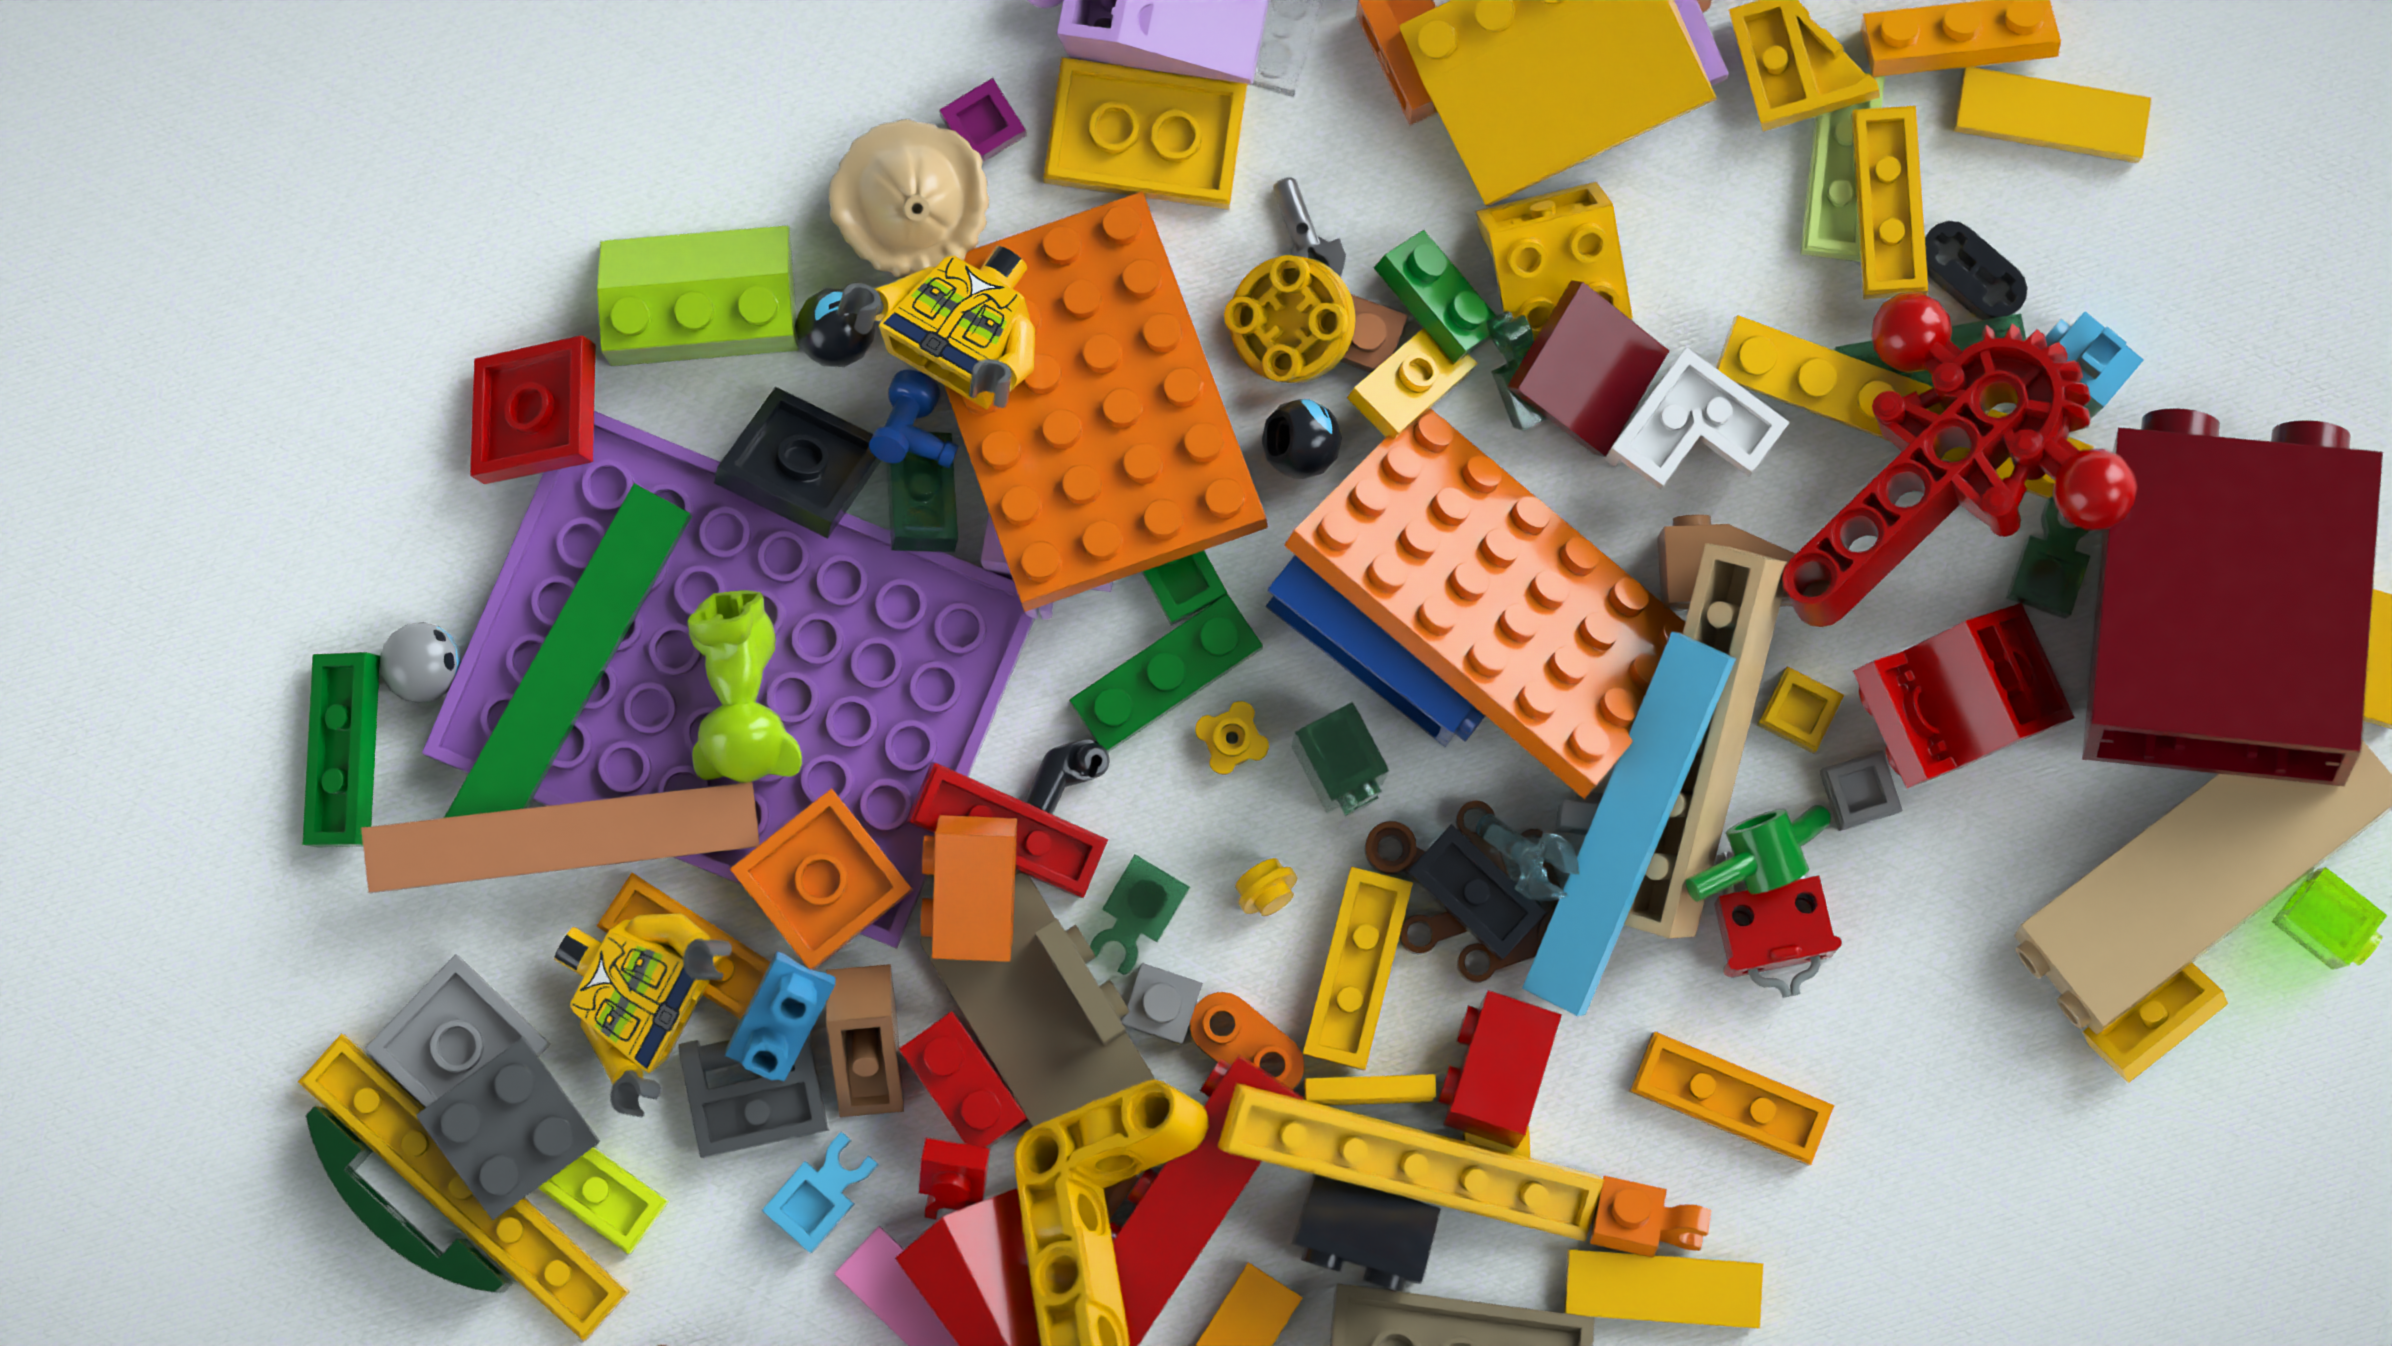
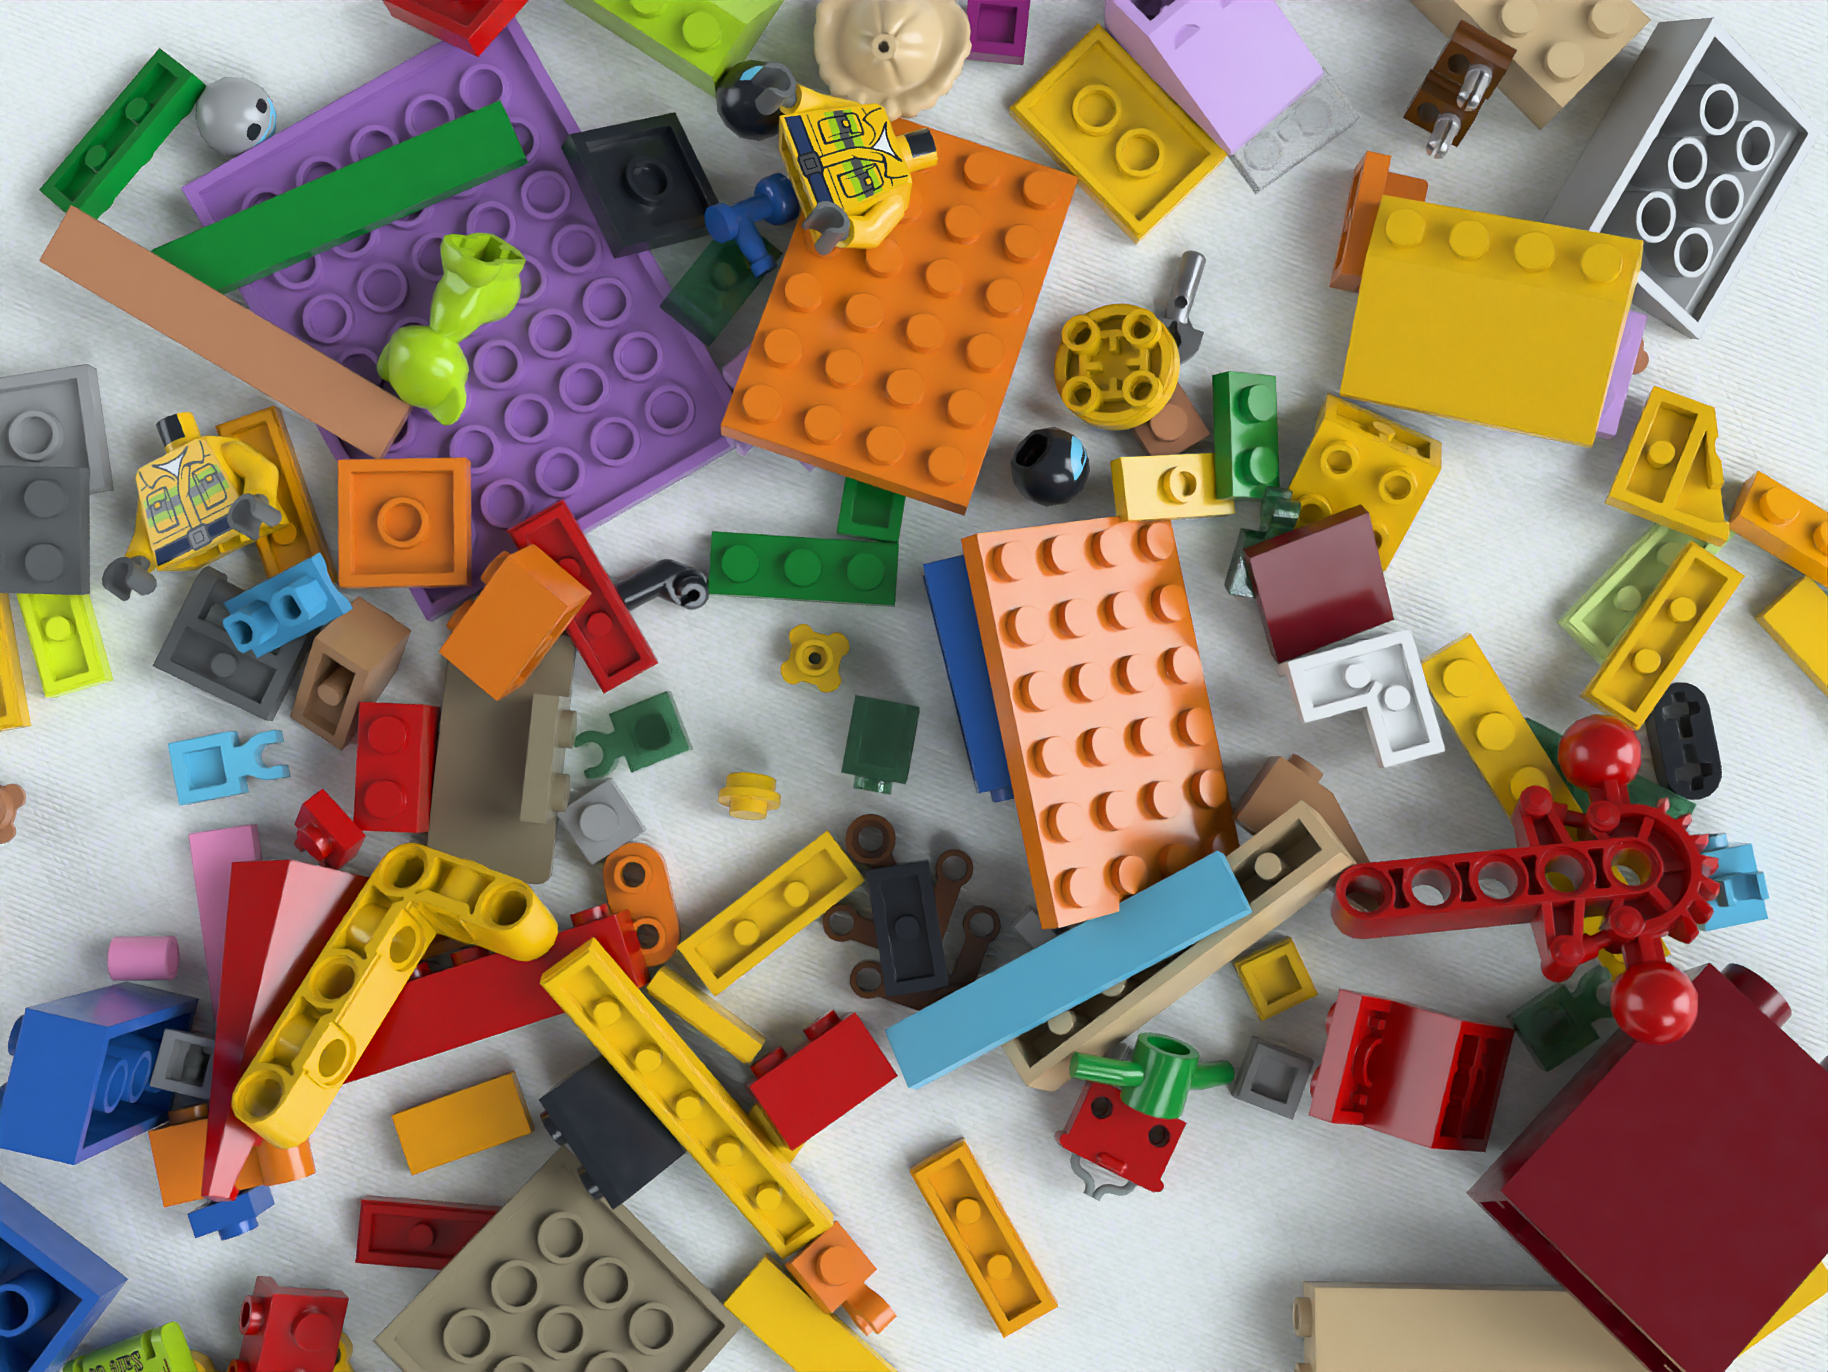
camera: 35 degrees right, 5 degrees up
(1530, 856) = (992, 943): clear light blue bar -> none

